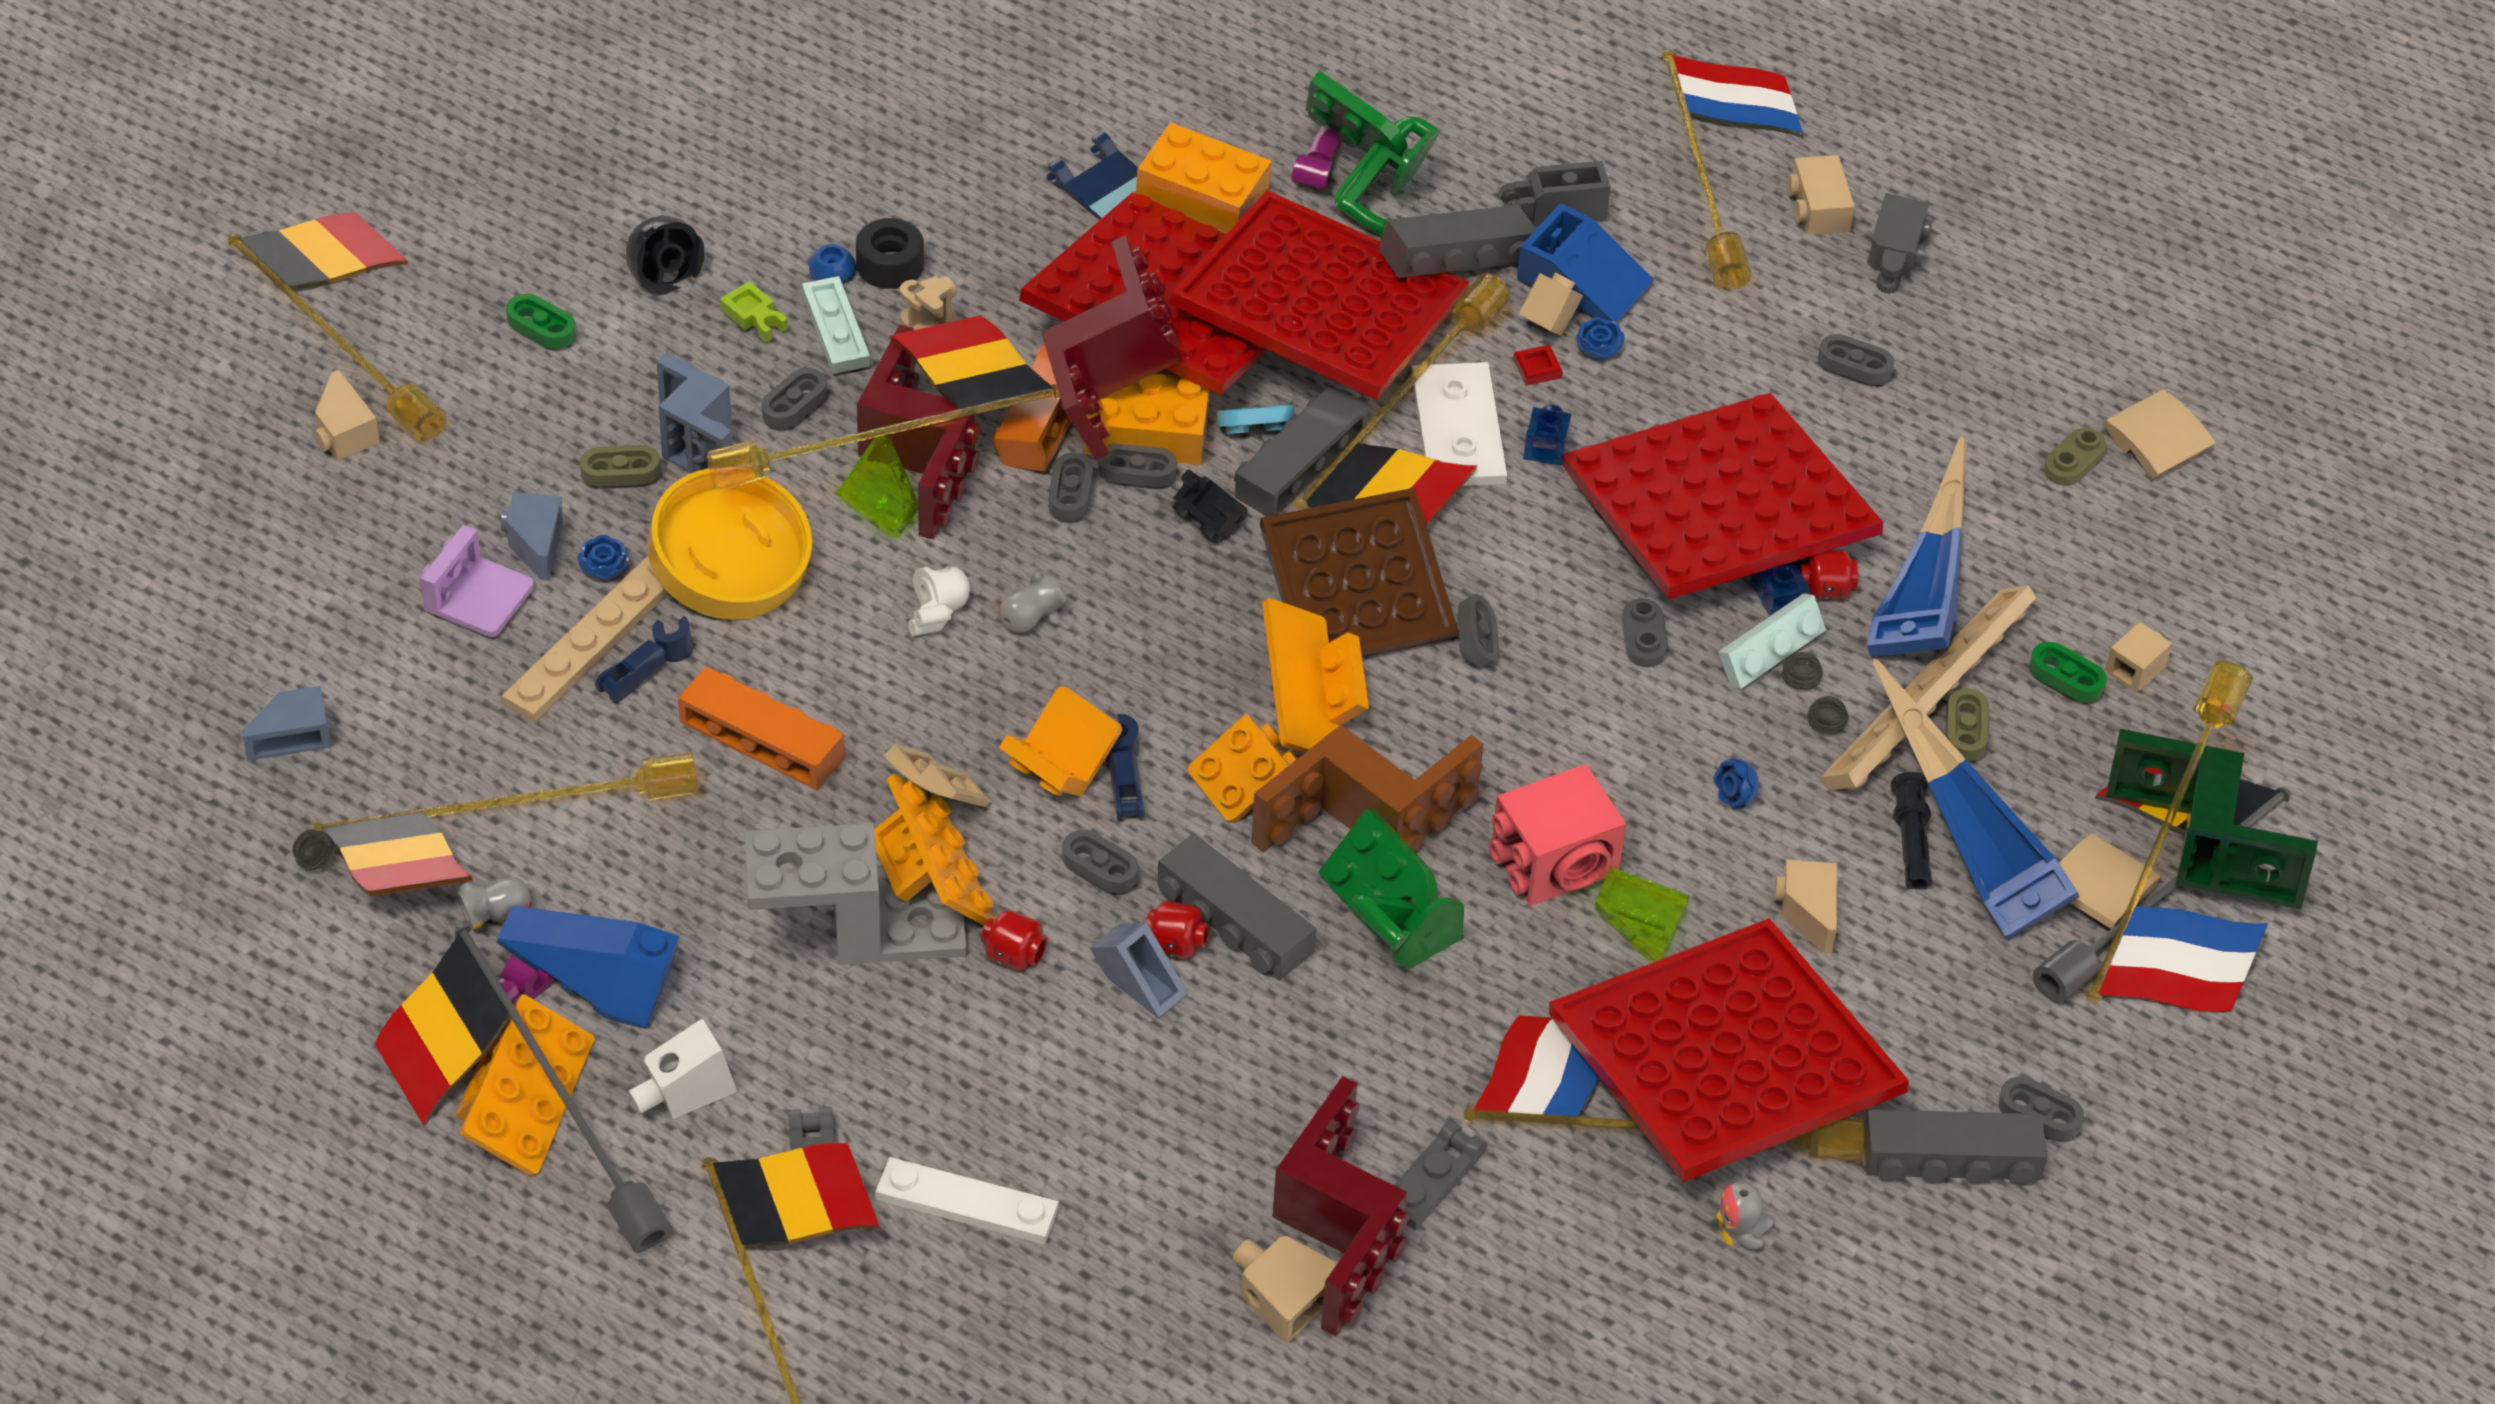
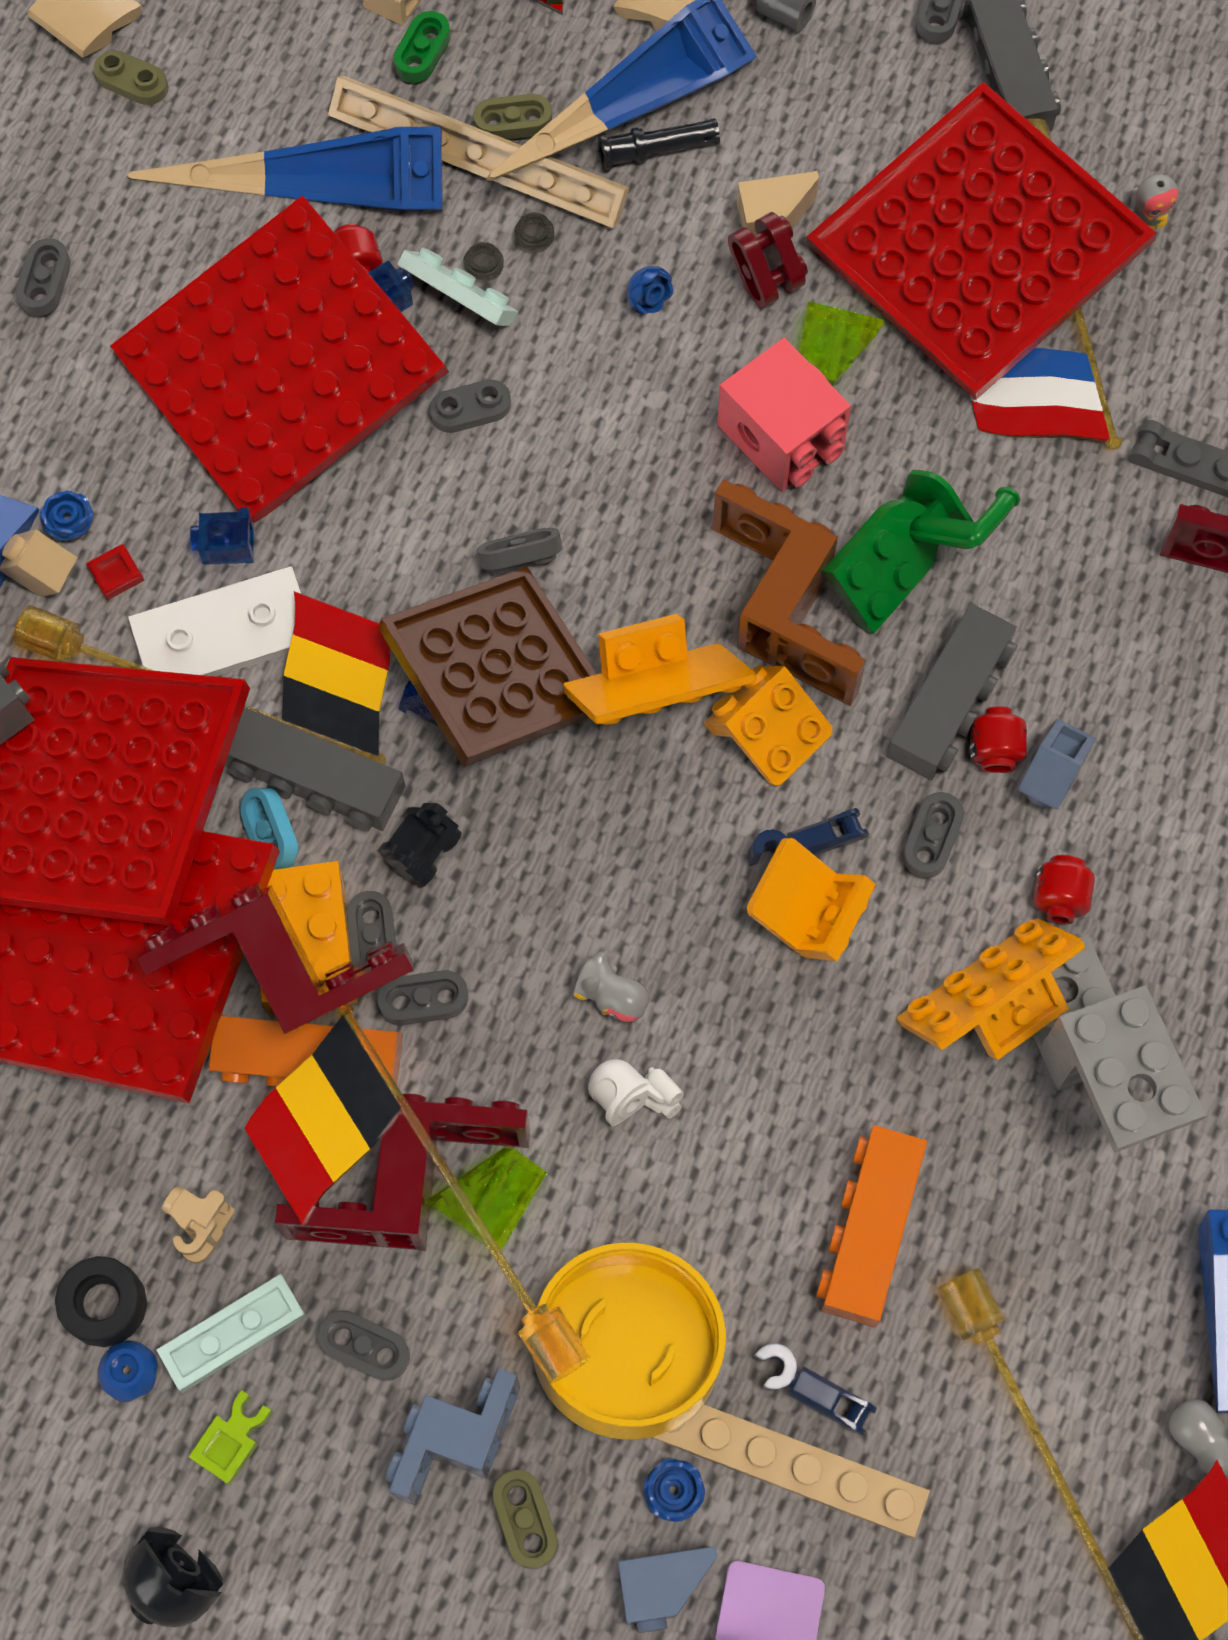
camera: 100 degrees left, 20 degrees up
(936, 778) = (902, 1012): tan slope -> none
(1742, 870) = (786, 265): none -> dark red brick

